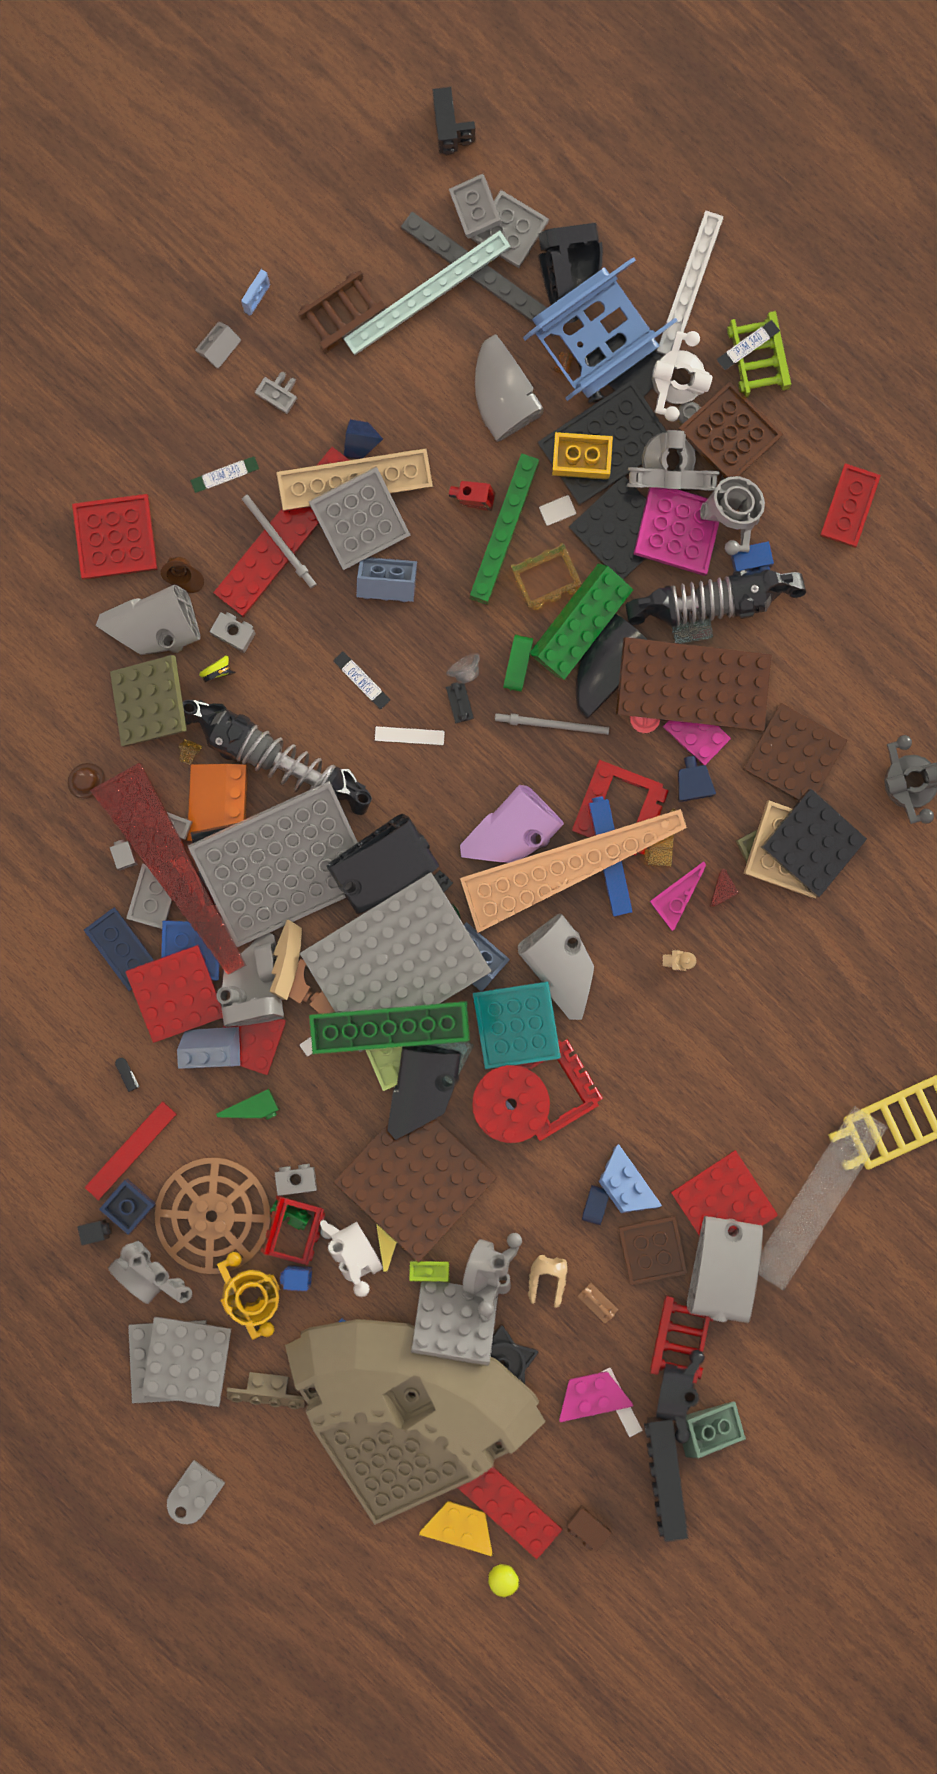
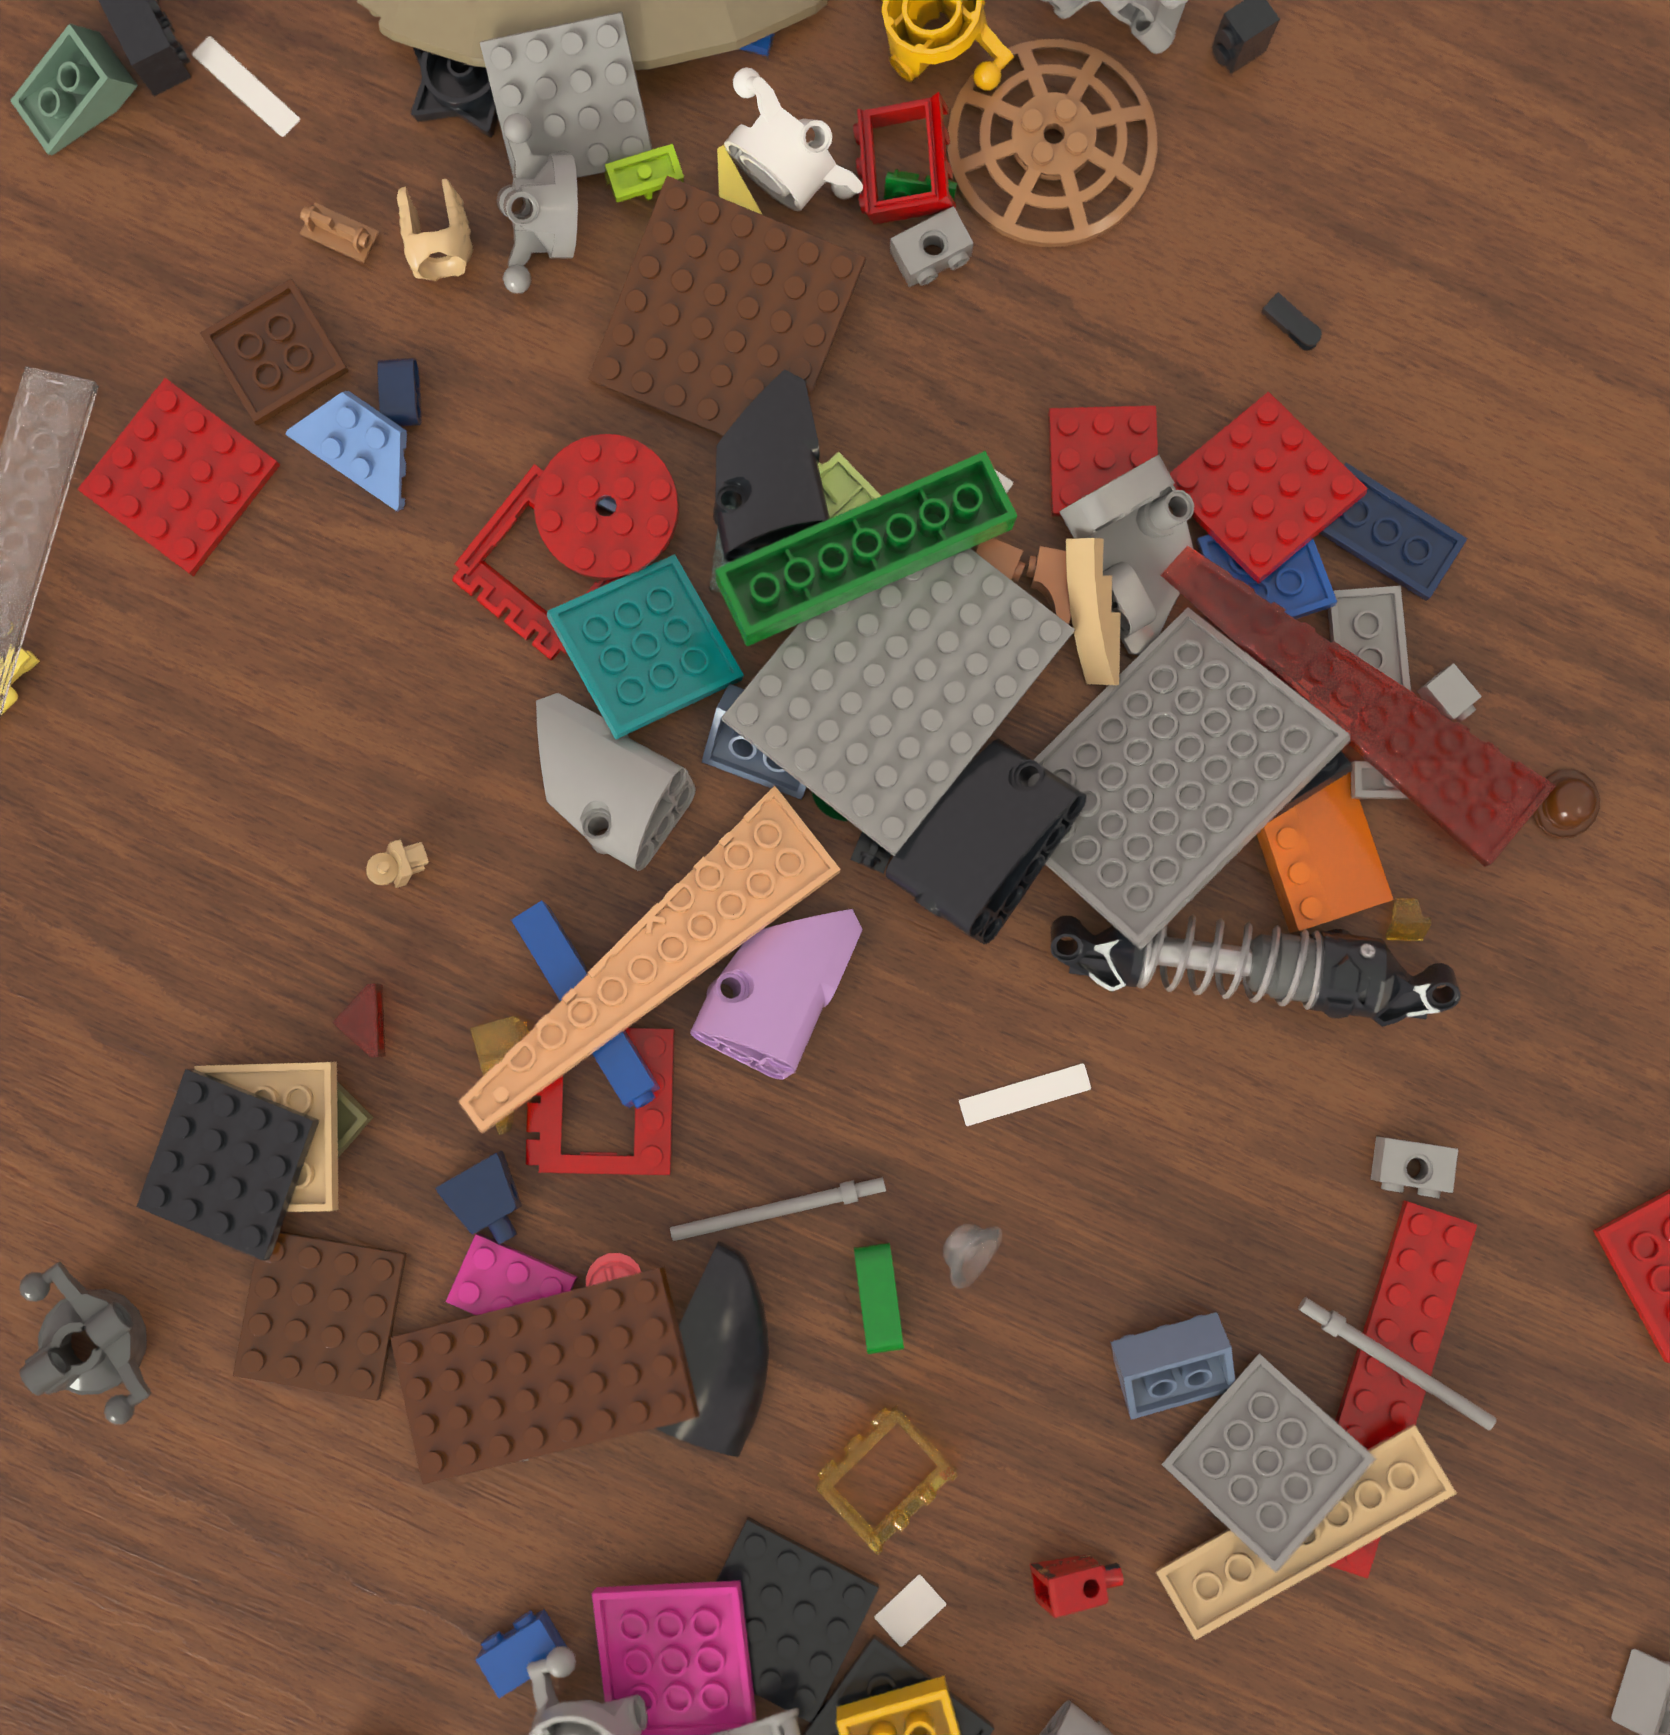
camera: 155 degrees right, 0 degrees up
(127, 1206) = (1203, 97): dark blue brick -> none
(130, 1150) = (1233, 199): red tile -> none
(148, 701) = (1518, 982): olive plate -> none
(153, 622) = (1562, 1130): light grey panel -> none
(181, 573) = (1549, 1236): reddish brown piece -> none
(209, 1048) = (1167, 410): sand blue slope -> none
(217, 669) = (1417, 1084): piece -> none
(224, 474) = (1540, 1452): sticker -> none
(257, 1106) = (1052, 342): green slope -> none
(276, 395) = (1506, 1638): light grey hinge -> none
(296, 1278) = (867, 72): blue brick -> none
(346, 664) = (1148, 1163): sticker -> none
(360, 439) = (1322, 1611): dark blue slope -> none
(459, 702) = (957, 1187): black hinge -> none
(504, 529) = (994, 1541): green brick -> none
(581, 621) = (790, 1419): green brick -> none
(592, 1396) = (294, 76): dark pink wing -> none
(665, 1326) = (202, 200): red fence -> none
(674, 899) = (448, 970): dark pink wing -> none
(674, 1386) = (143, 118): black piece -> none
(692, 632) = (584, 1474): clear light blue tile -> none
(725, 1270) = (129, 354): light grey panel -> none
(735, 596) = (523, 1570): black piece -> none

